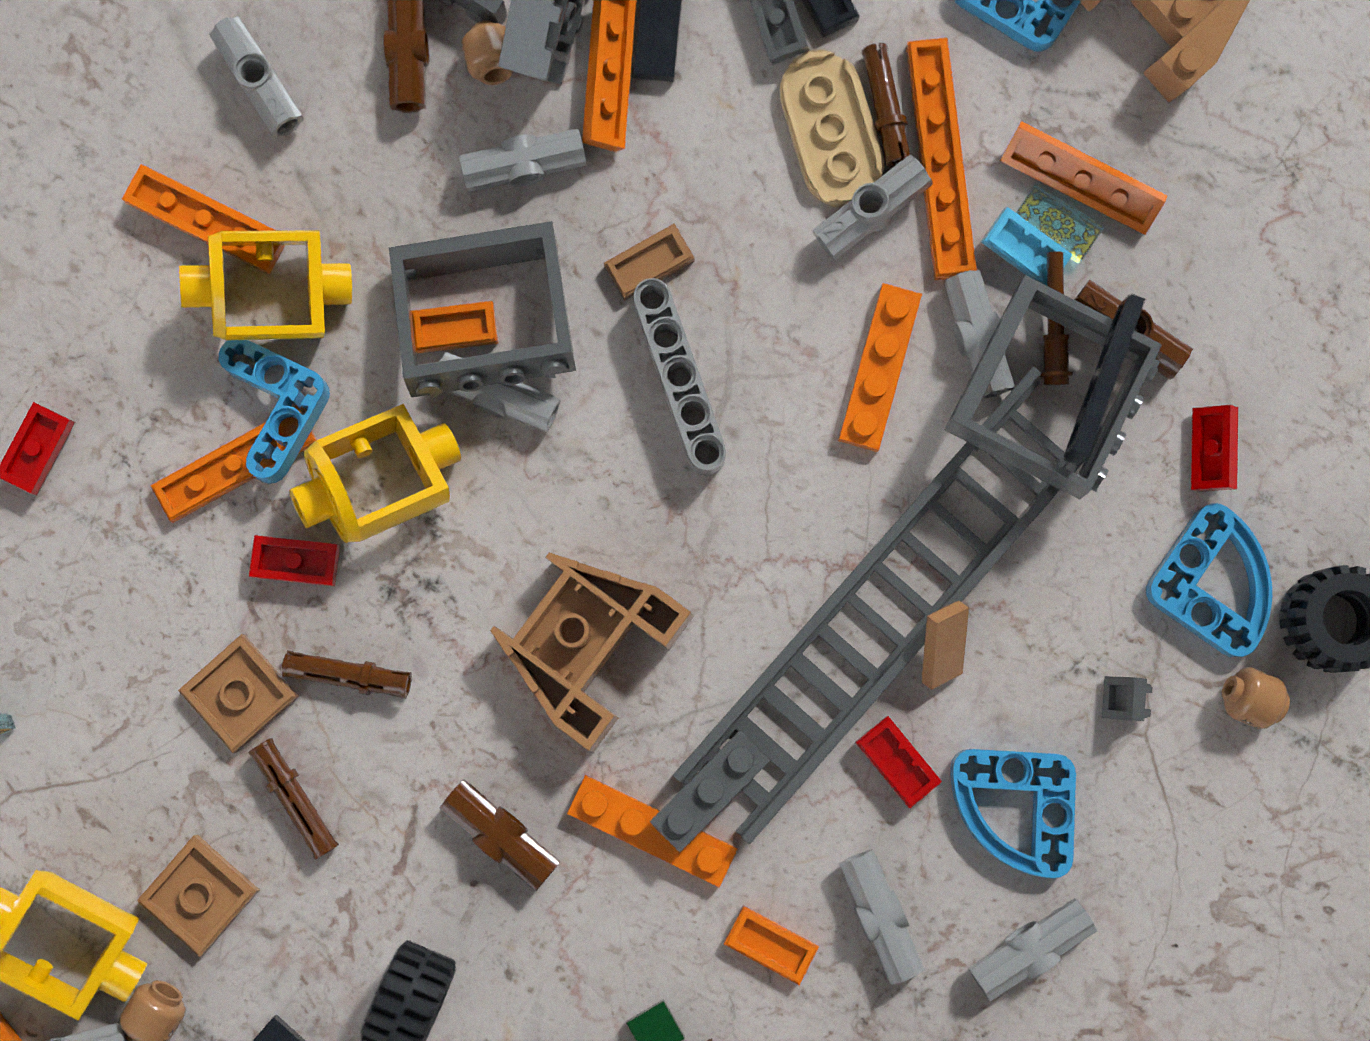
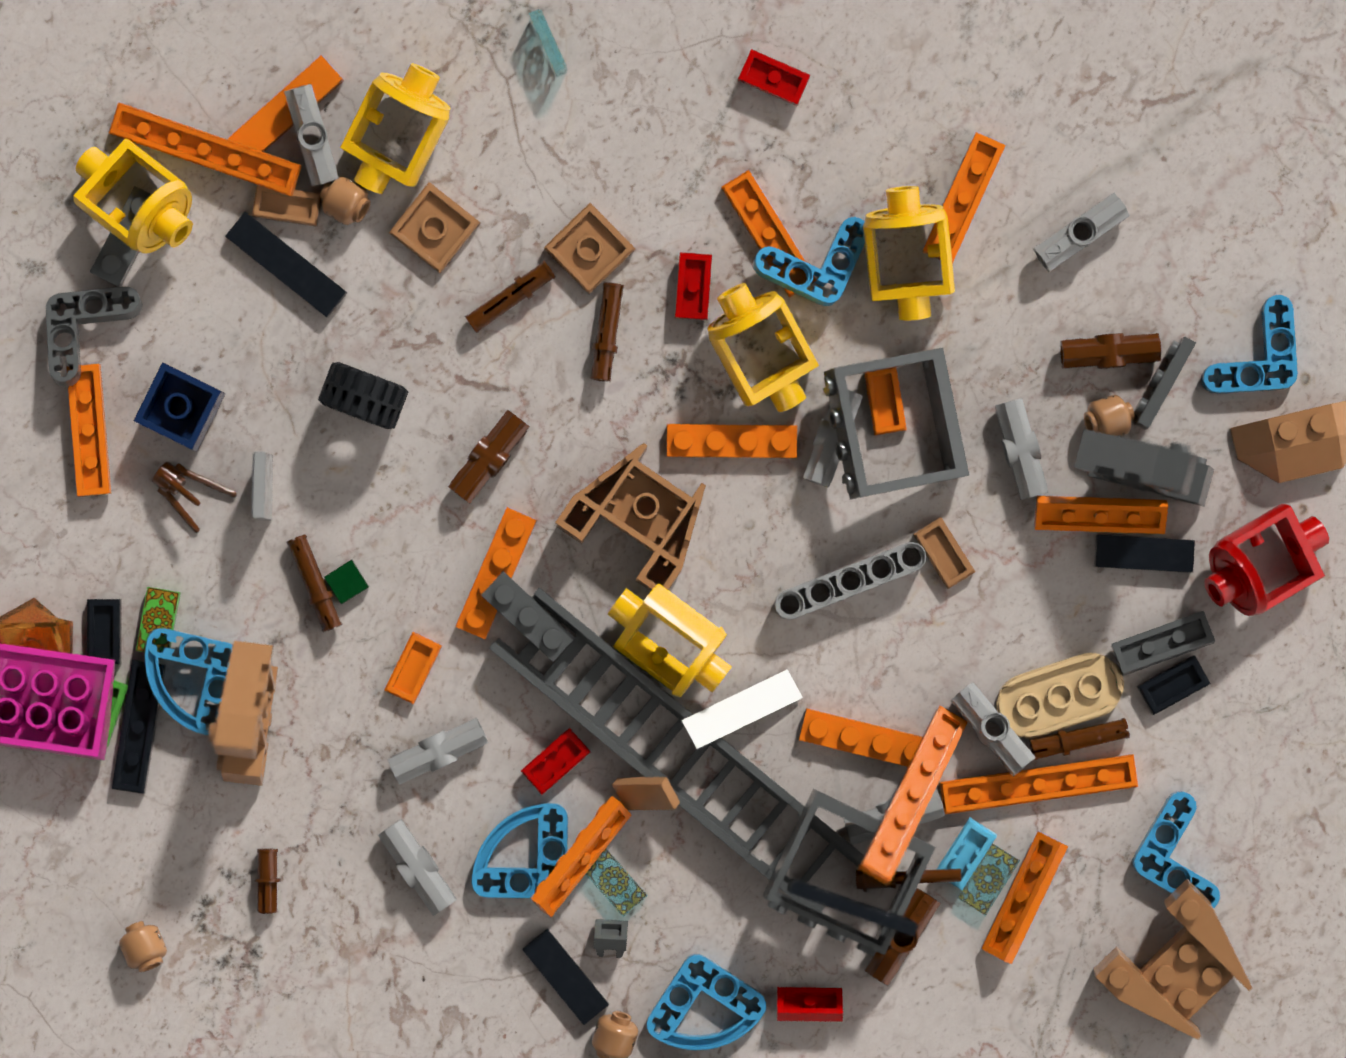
camera: 90 degrees right, 5 degrees up
(495, 520) = (731, 441): none -> orange plate
(786, 561) = (707, 667): none -> yellow piece
(839, 519) = (742, 709): none -> white sticker
(960, 303) = (913, 795): none -> orange tile
(1034, 741) = (581, 856): none -> orange plate
(1053, 692) = (615, 883): none -> clear light blue tile
(1175, 759) = (565, 976): none -> black tile

